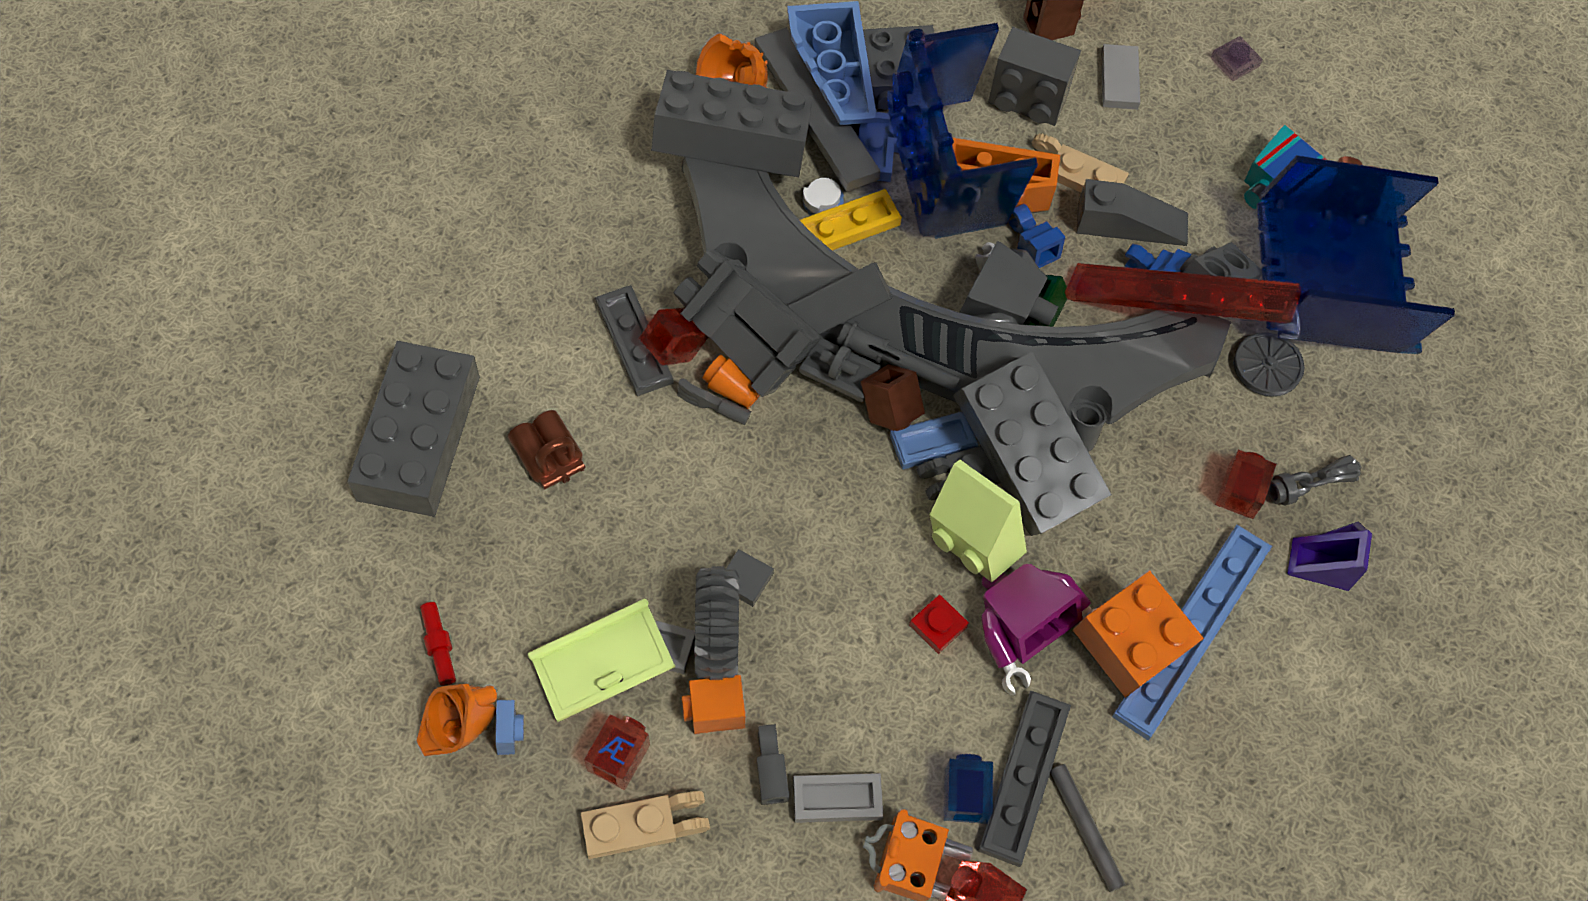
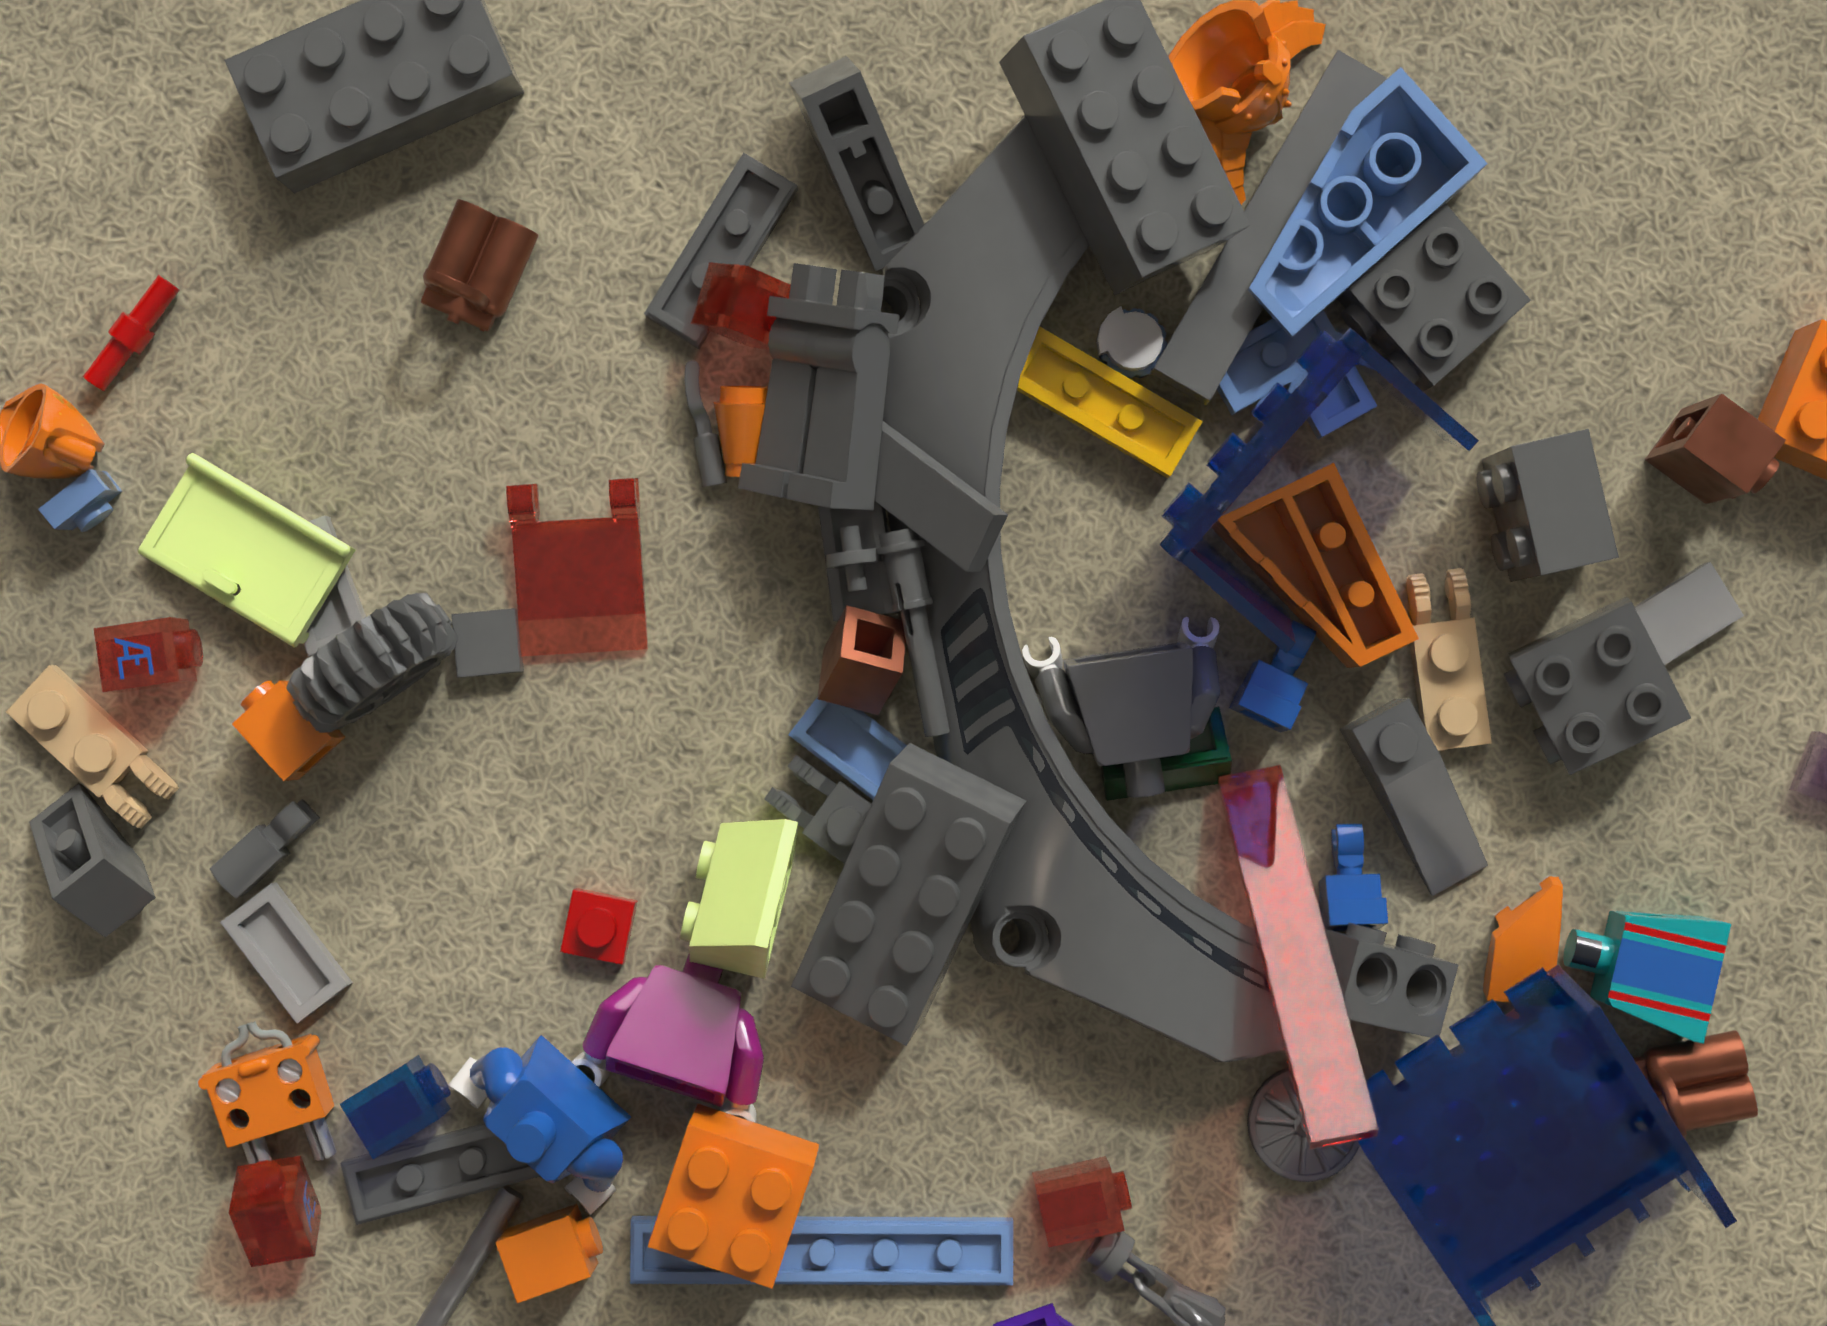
camera: 60 degrees right, 25 degrees up
(639, 246) = (859, 157): none -> dark grey slope
(708, 864) = (90, 862): none -> dark grey slope
(743, 509) = (579, 577): none -> clear red flag
(1029, 696) = (549, 1117): none -> blue torso
(1106, 764) = (549, 1252): none -> orange brick
(1132, 110) = (1596, 687): none -> dark grey brick
(1237, 217) = (1524, 940): none -> orange slope

